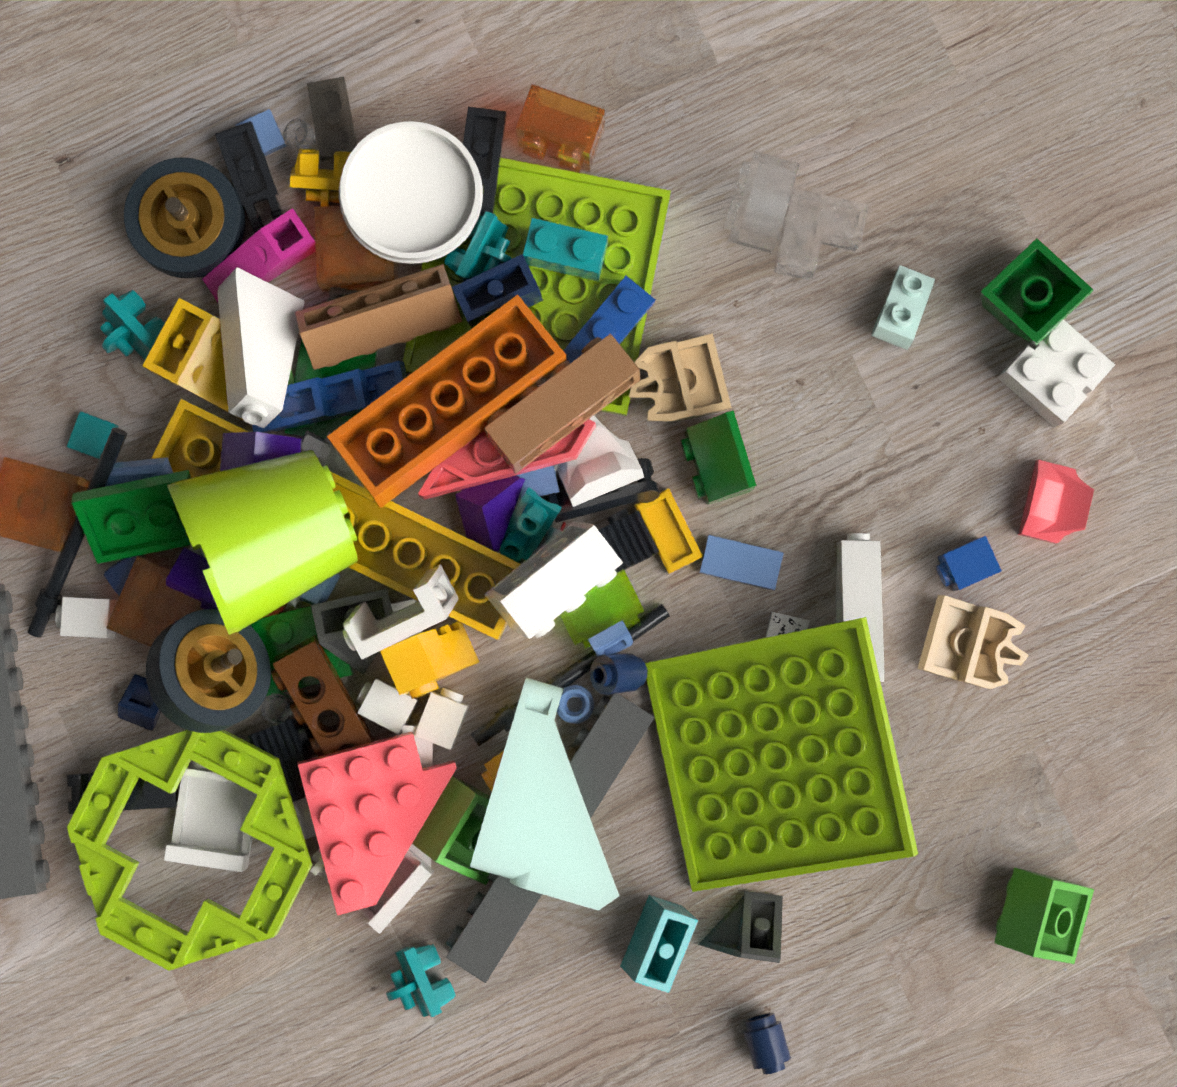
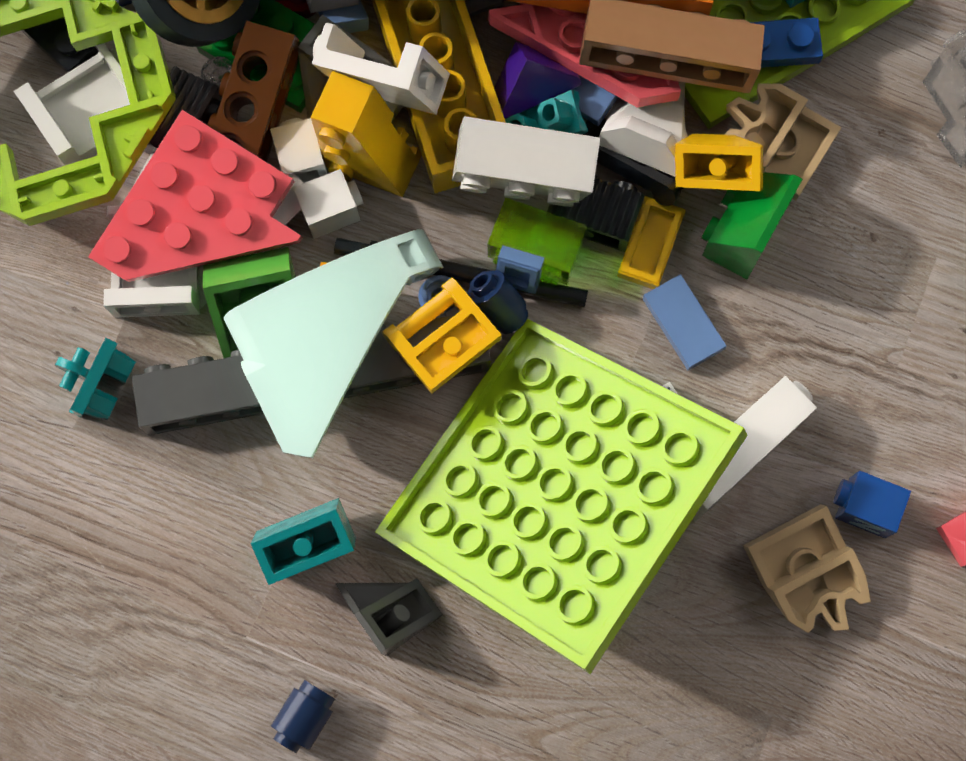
camera: 50 degrees right, 10 degrees down
(624, 735) = (451, 345): none -> yellow plate
(666, 447) = (719, 163): none -> yellow slope

